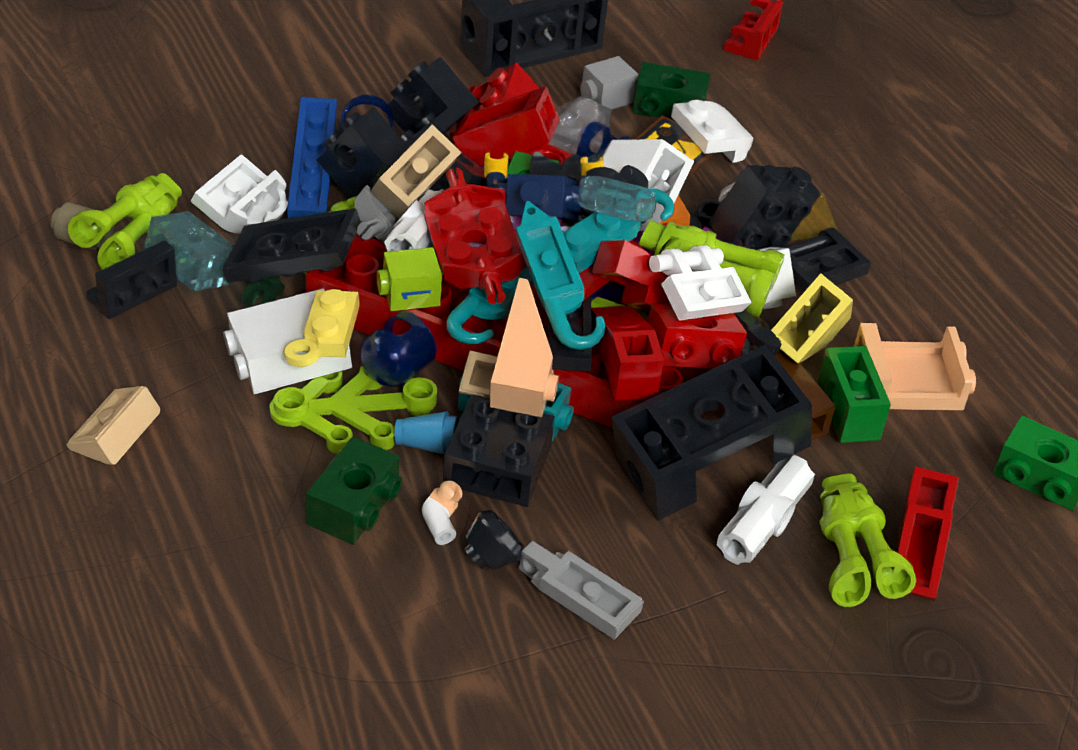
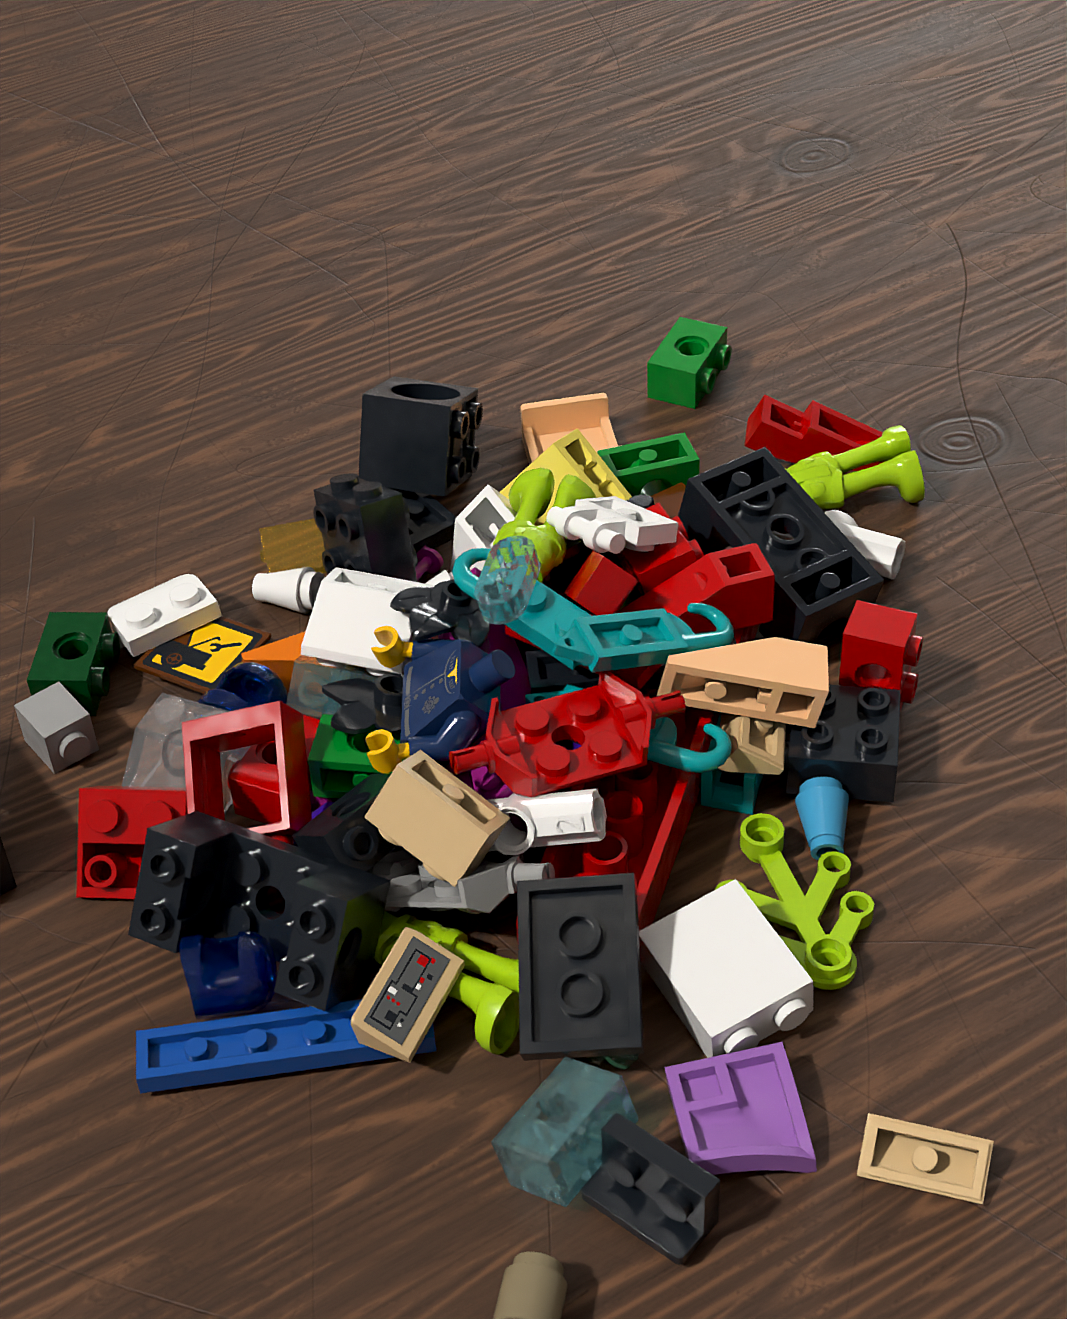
camera: 90 degrees left, 0 degrees up
(141, 201) = (471, 1226): lime piece -> none
(176, 335) = (741, 1112): none -> medium lavender plate
(242, 196) = (402, 1107): white slope -> none
(312, 185) = (406, 995): none -> slope
(327, 328) = (737, 895): light yellow hinge -> none
(353, 490) = (952, 867): dark green brick -> none
(398, 358) = (729, 849): clear blue helmet -> none
(410, 279) = (637, 810): lime brick -> none
(438, 510) = (938, 799): white arm -> none
(492, 541) = (979, 734): black cone -> none
(577, 478) = (881, 649): none -> red brick
(581, 588) = (1003, 666): light grey hinge -> none
(897, 250) = (419, 435): none -> black brick

